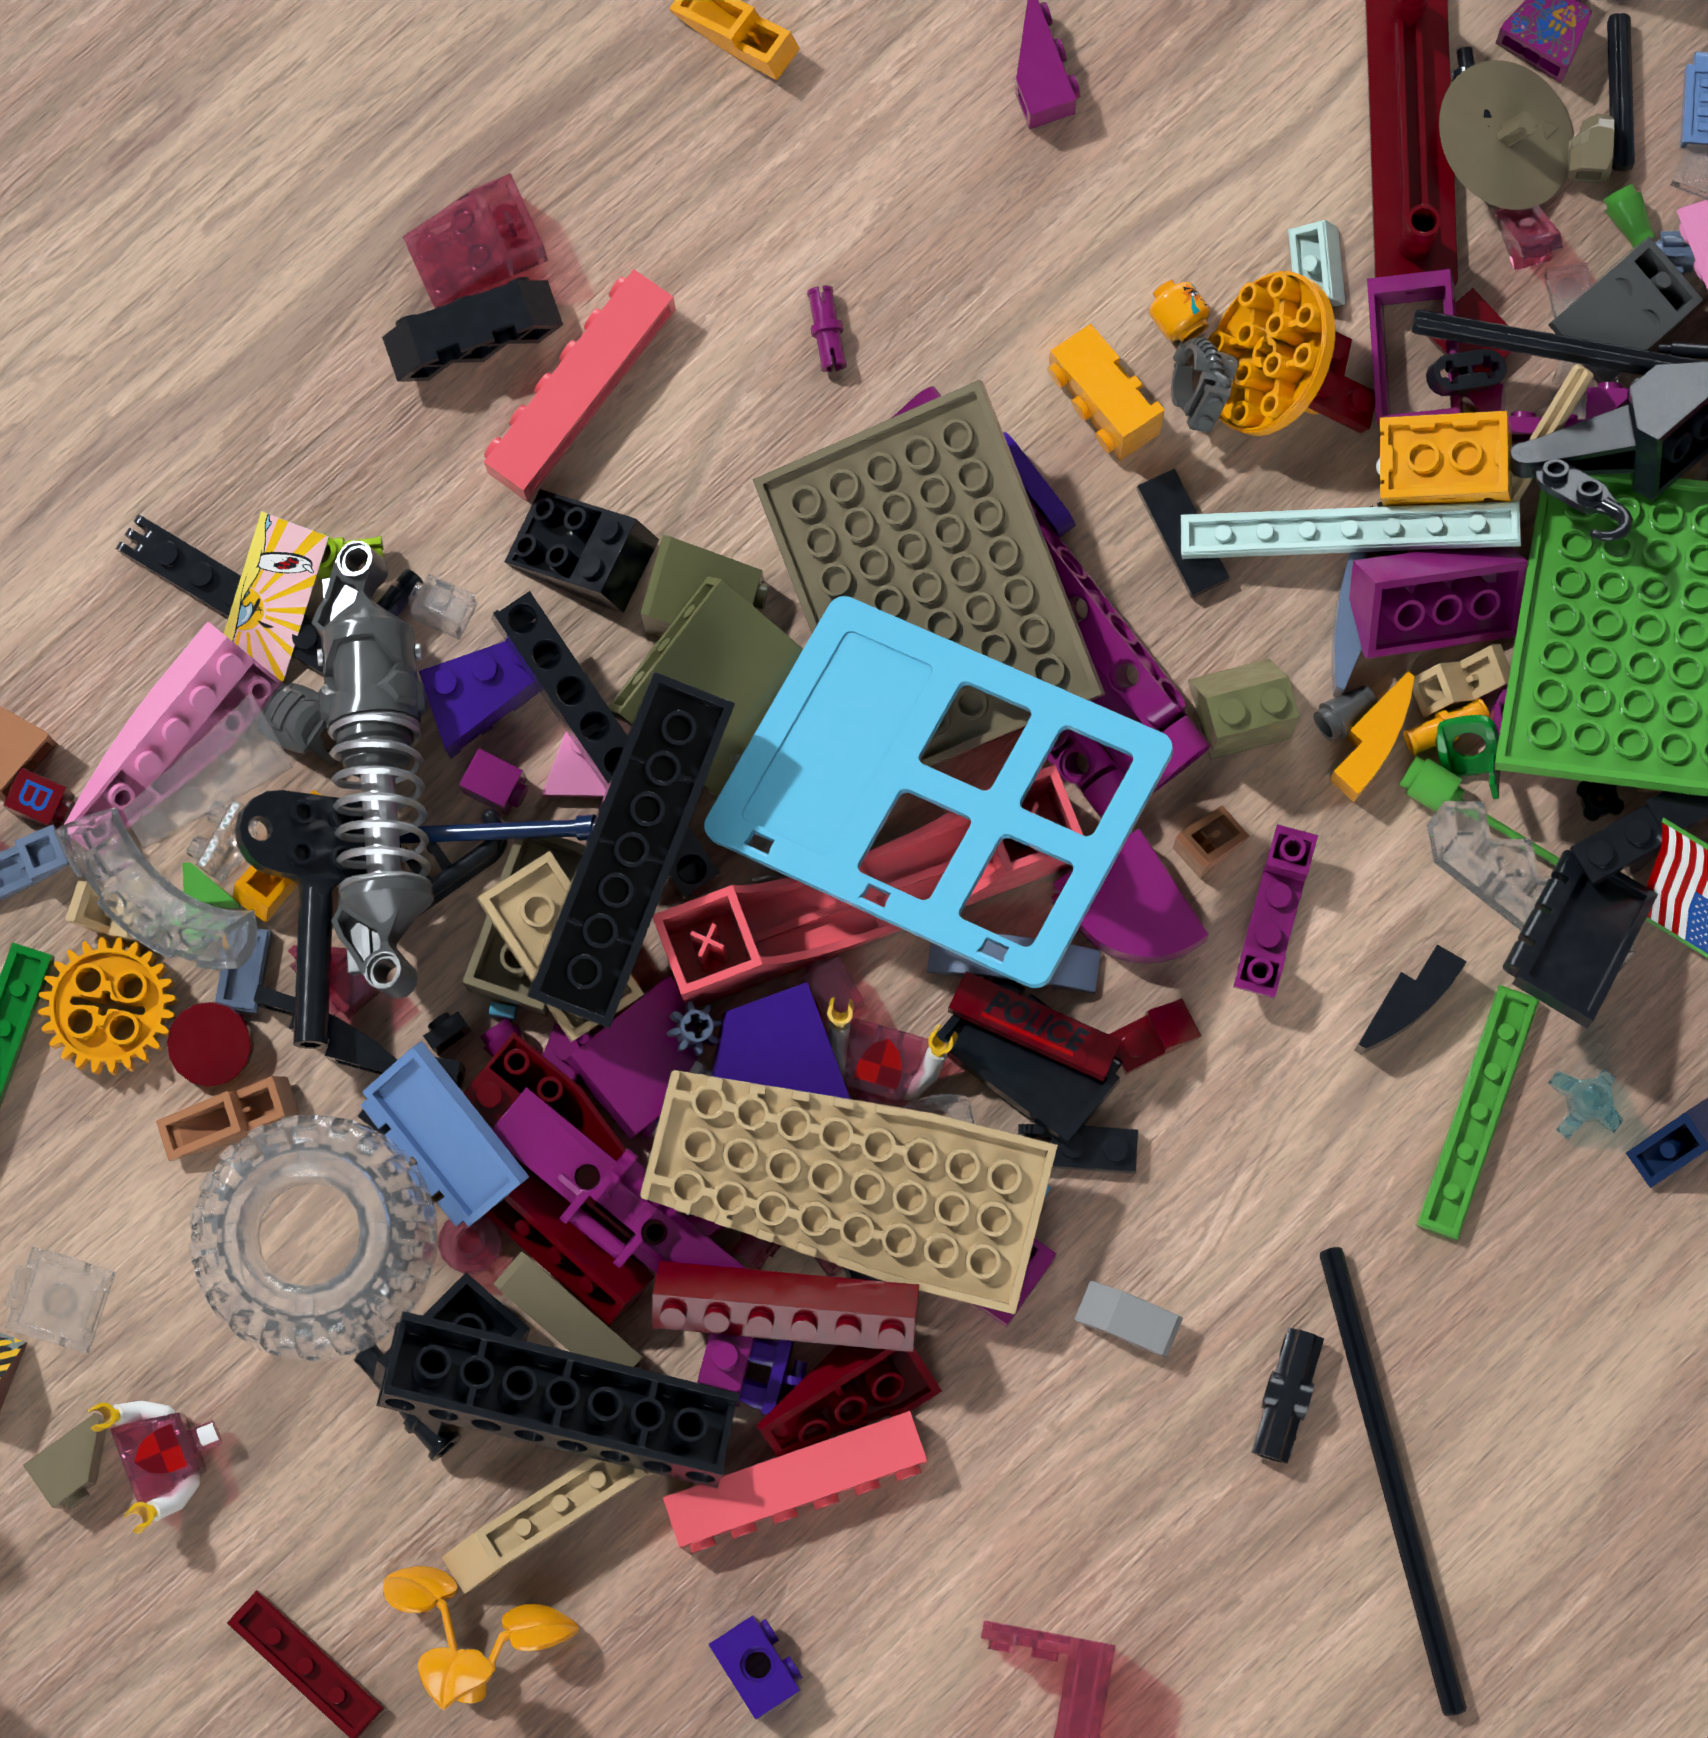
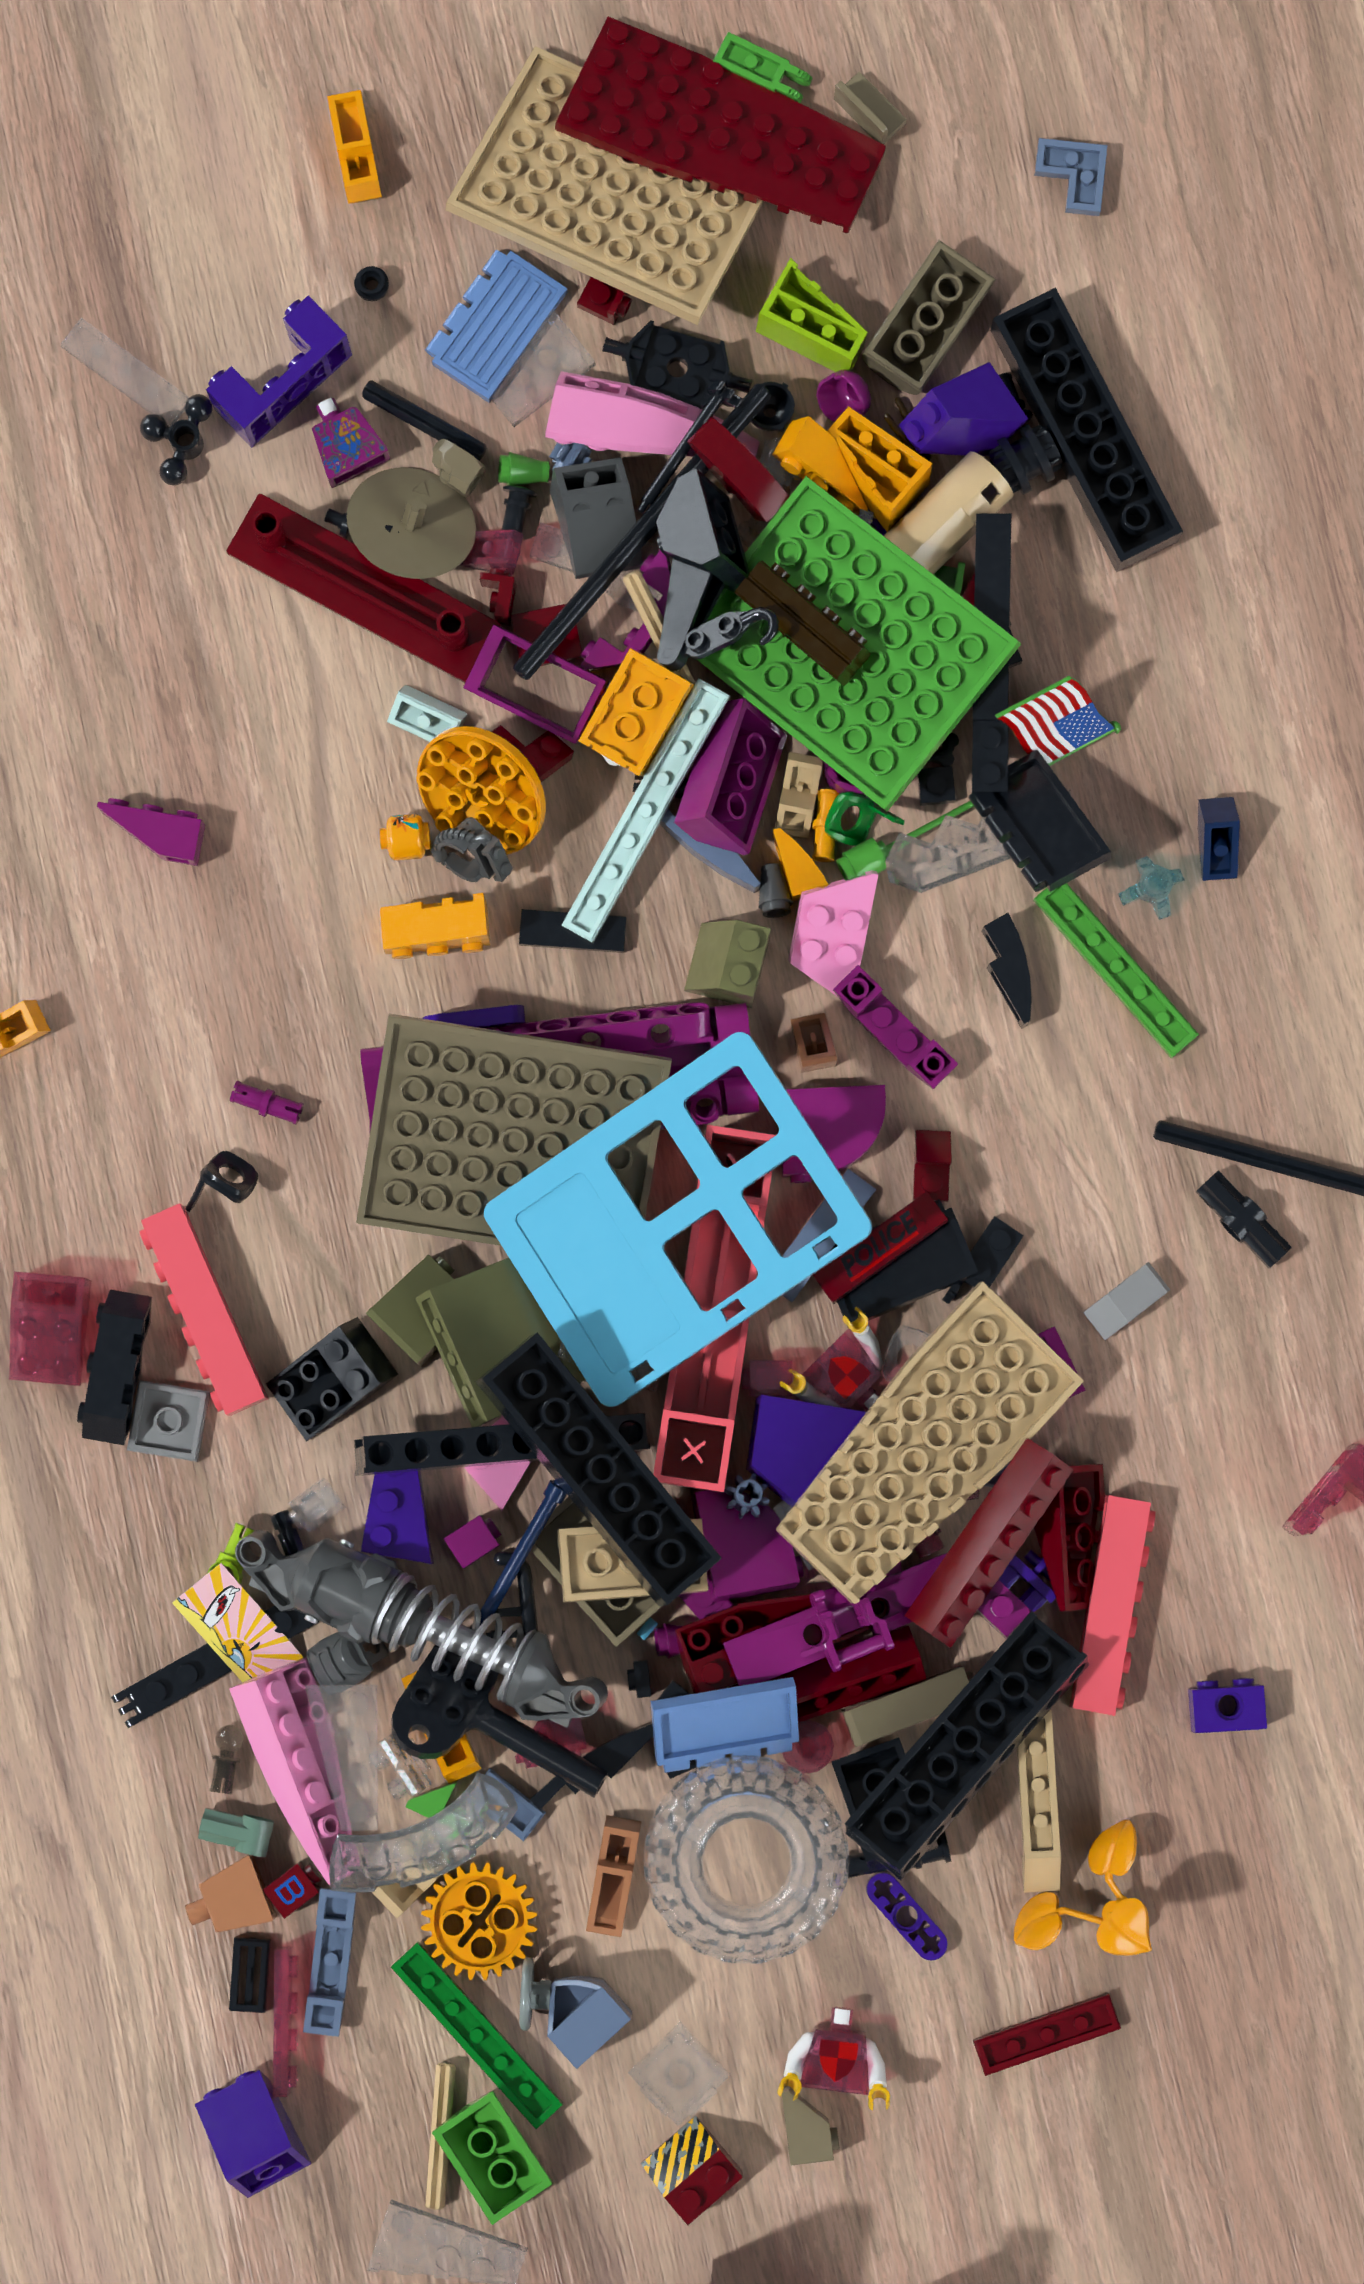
camera: 65 degrees left, 5 degrees up
(67, 1155) = (581, 2011): none -> sand blue piece
(71, 722) = (246, 1833): none -> sand green piece
(156, 654) = (228, 1740): none -> clear smoke pin
(210, 1044) = (550, 1859): dark red tile -> none
(330, 1474) = (932, 1929): none -> dark purple beam
(448, 415) = (168, 1421): none -> light grey tile
(714, 342) = (234, 1191): none -> black piece
(1340, 788) = (833, 929): none -> bright pink wing
(1467, 381) = (572, 657): black beam -> none
(1483, 271) = (502, 601): none -> dark red bracket
(1557, 817) = (936, 785): none -> black plate
(1587, 231) = (516, 507): none -> black pin
(1641, 572) = (804, 623): none -> dark brown brick

